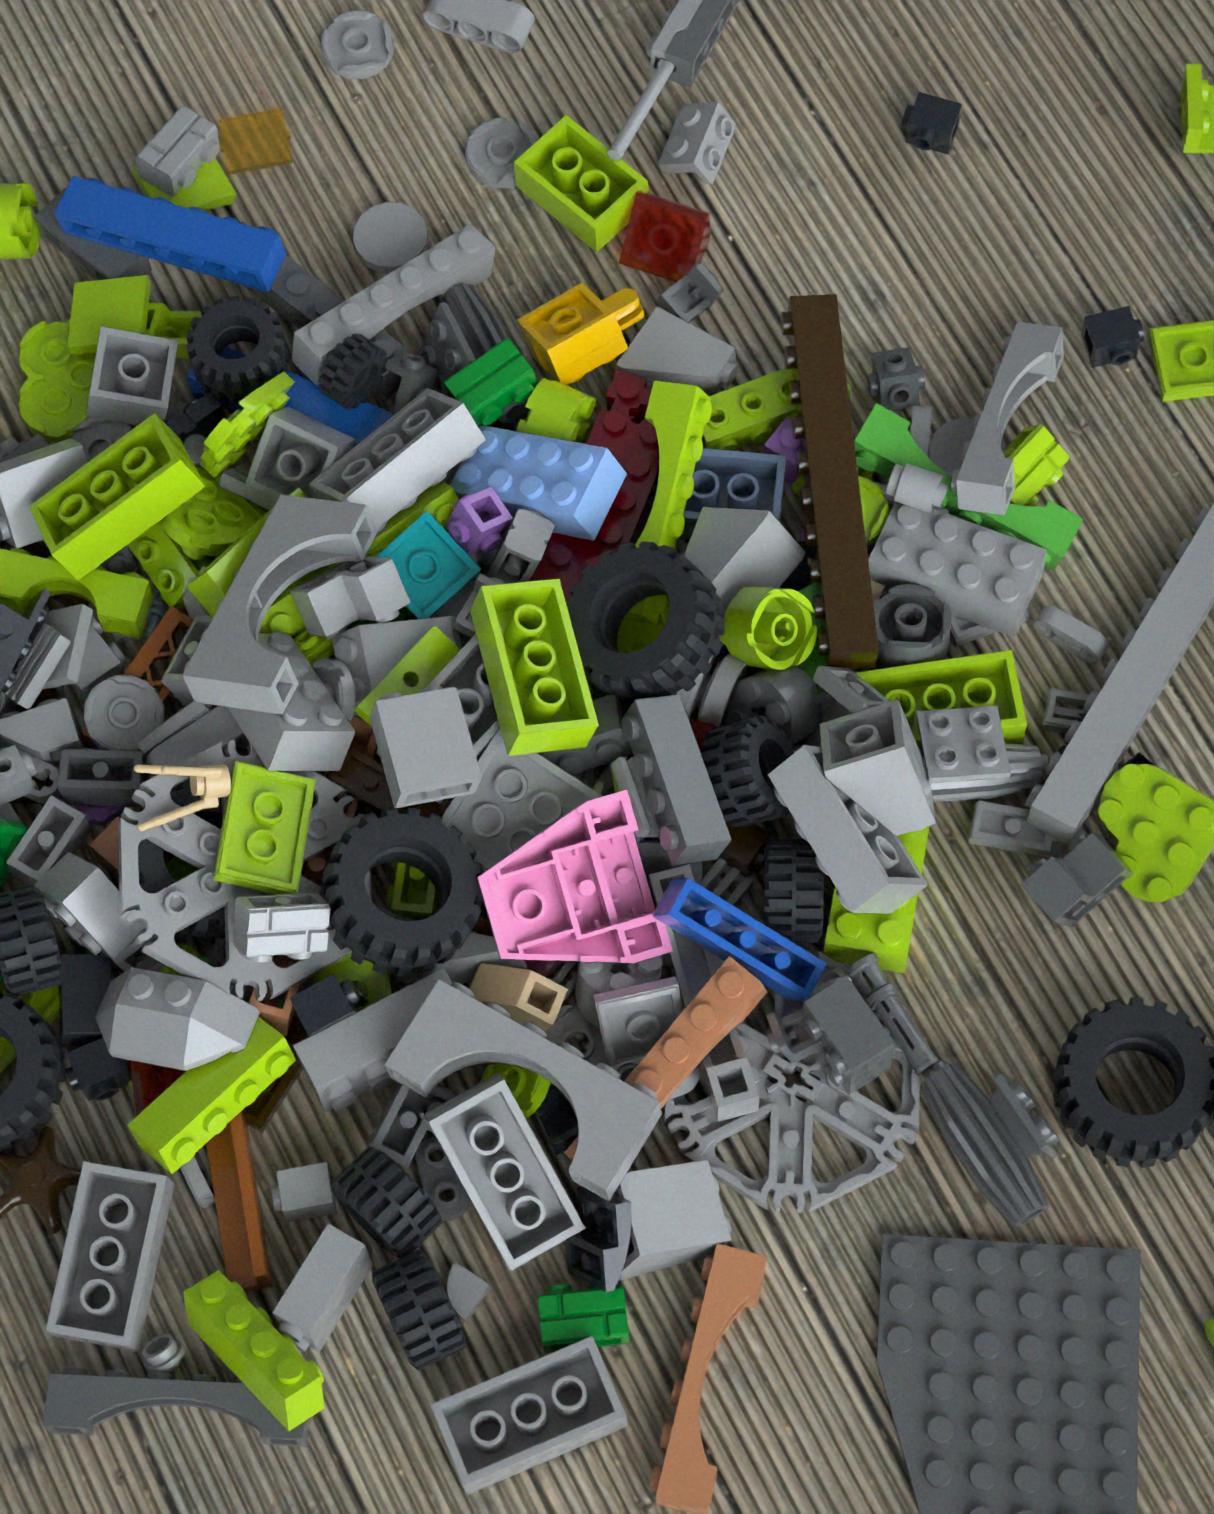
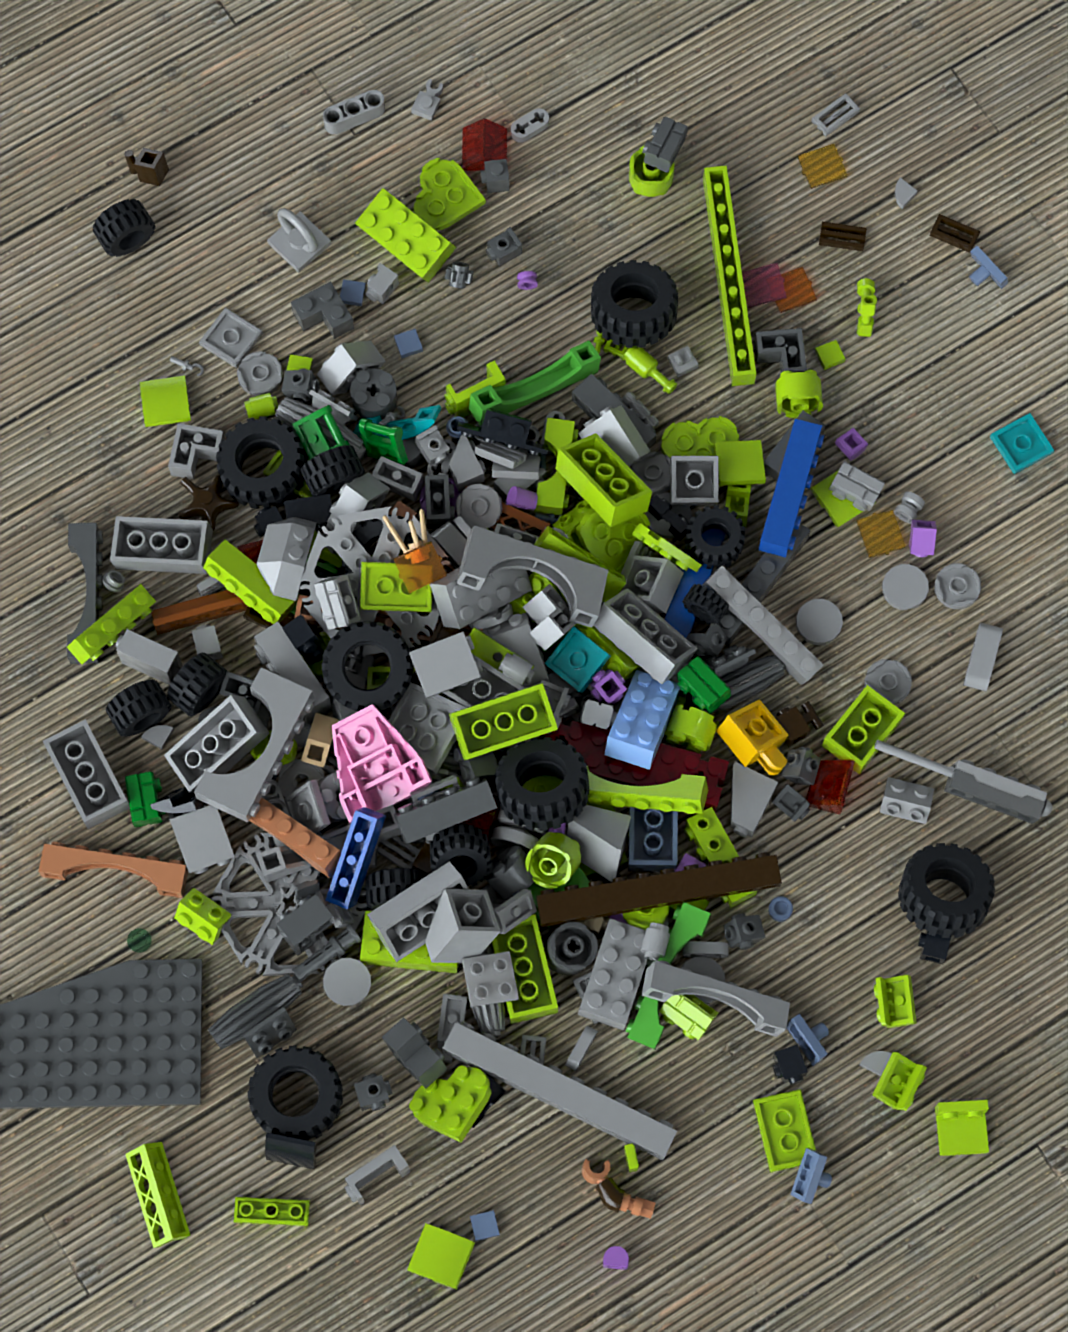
camera: 80 degrees right, 5 degrees up
(100, 161) = (851, 444): none -> medium lavender brick
(121, 641) = (522, 498): none -> medium lavender brick
(219, 91) = (909, 507): none -> light grey wheel
(241, 775) = (420, 567): none -> clear orange piece
(275, 74) = (922, 538): none -> medium lavender brick
(349, 114) = (905, 587): none -> light grey tile
(438, 645) = (516, 668): none -> light grey brick
(555, 272) = (797, 724): none -> dark brown brick
(631, 270) = (801, 766): none -> dark grey brick
(808, 1225) = (202, 916): none -> lime bracket
(839, 1344) = (139, 940): none -> clear green tile
(858, 333) = (780, 909): none -> sand blue tile
(869, 120) = (955, 866): none -> black tyre
(939, 991) = (346, 981): none -> light grey tile
(1018, 182) = (895, 1001): none -> lime bracket
(1070, 307) = (808, 1038): none -> sand blue tile
(1110, 223) = (876, 1061): none -> light grey tile
(1135, 958) = (373, 1101): none -> dark grey brick
(1146, 188) = (899, 1082): none -> lime bracket

